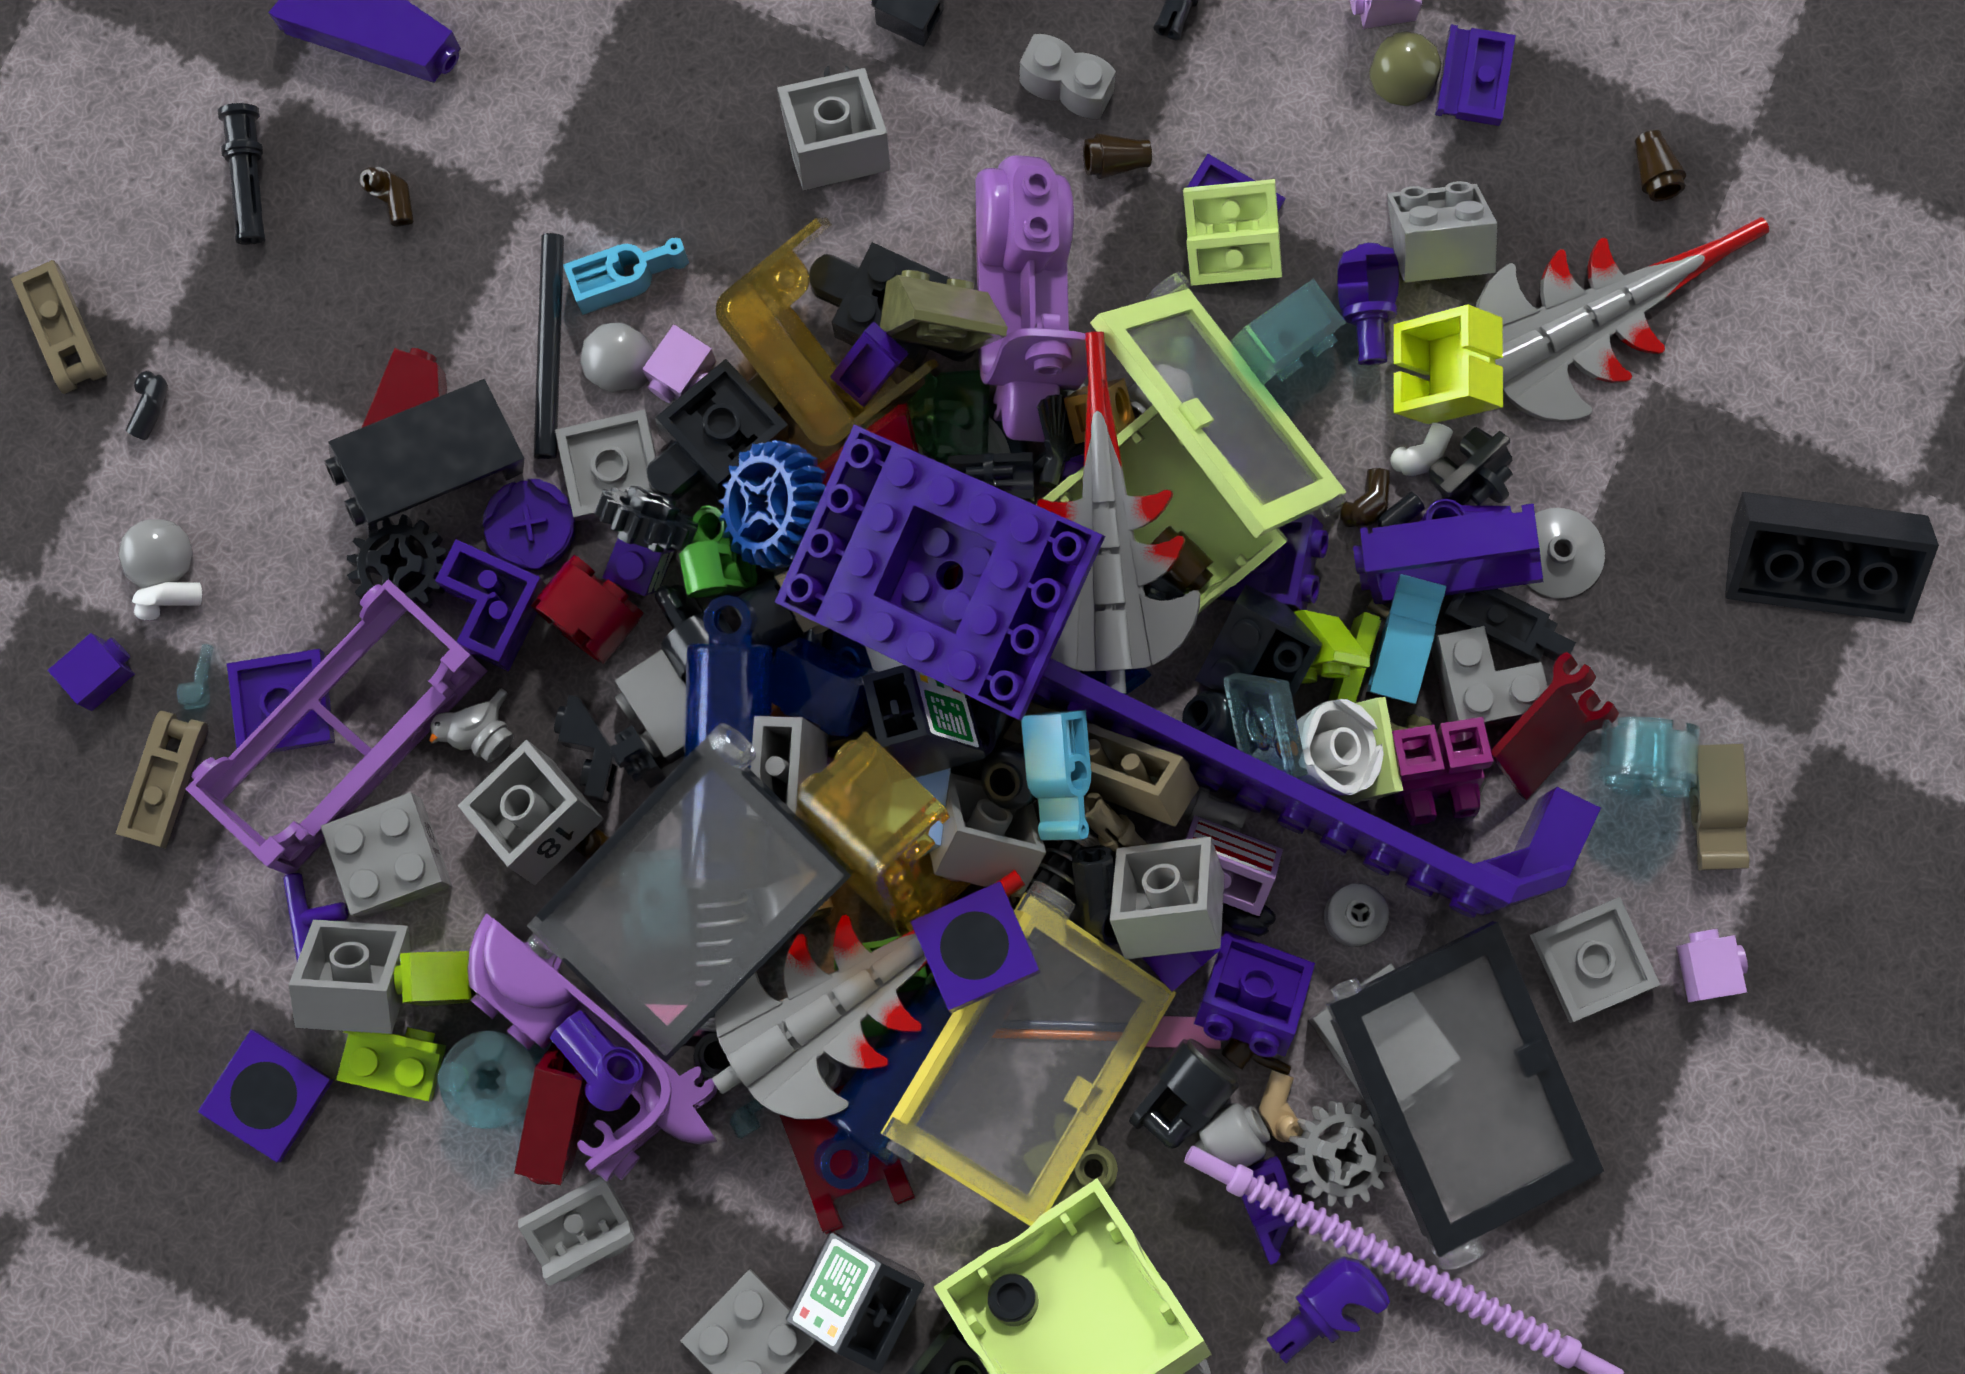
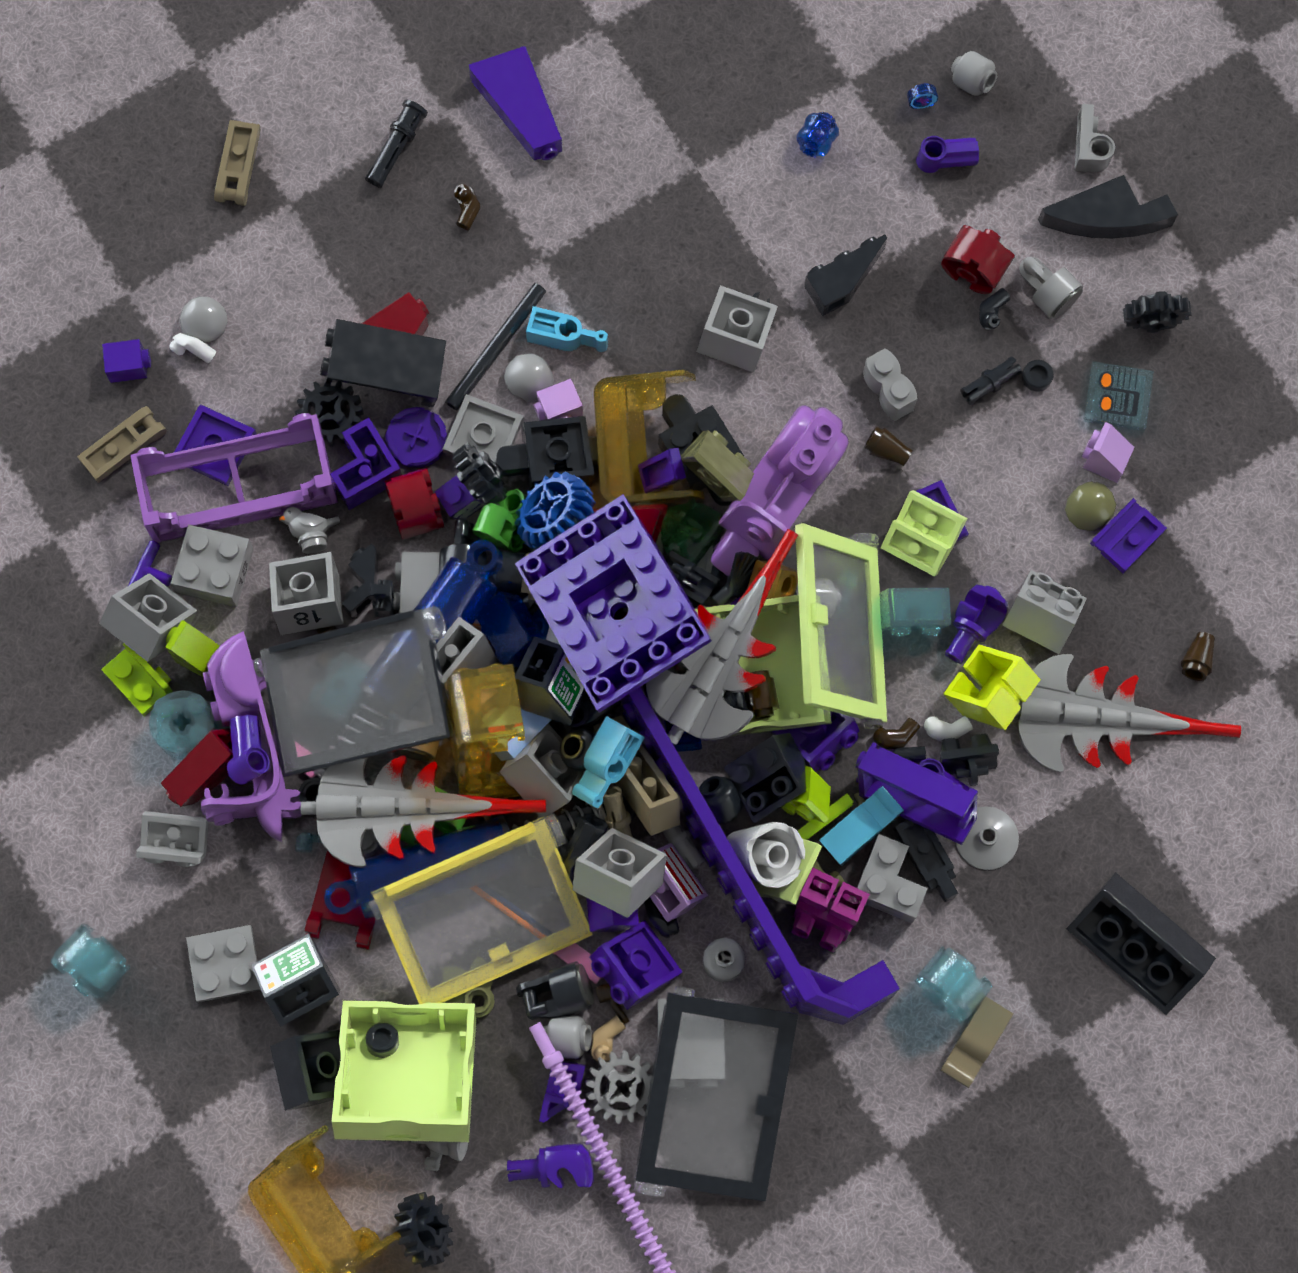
camera: 30 degrees right, 5 degrees down
(149, 406) = (263, 231): black arm -> none
(197, 693) = (172, 410): clear light blue hand -> none
(265, 1095) = (57, 652): dark purple tile -> none
(975, 947) = (493, 825): dark purple tile -> none
(1265, 721) = (741, 812): clear light blue tile -> none
(1551, 727) = (907, 929): dark red flag -> none
(1595, 960) = (843, 1079): light grey plate -> none
(1712, 966) = (908, 1128): lavender brick -> none

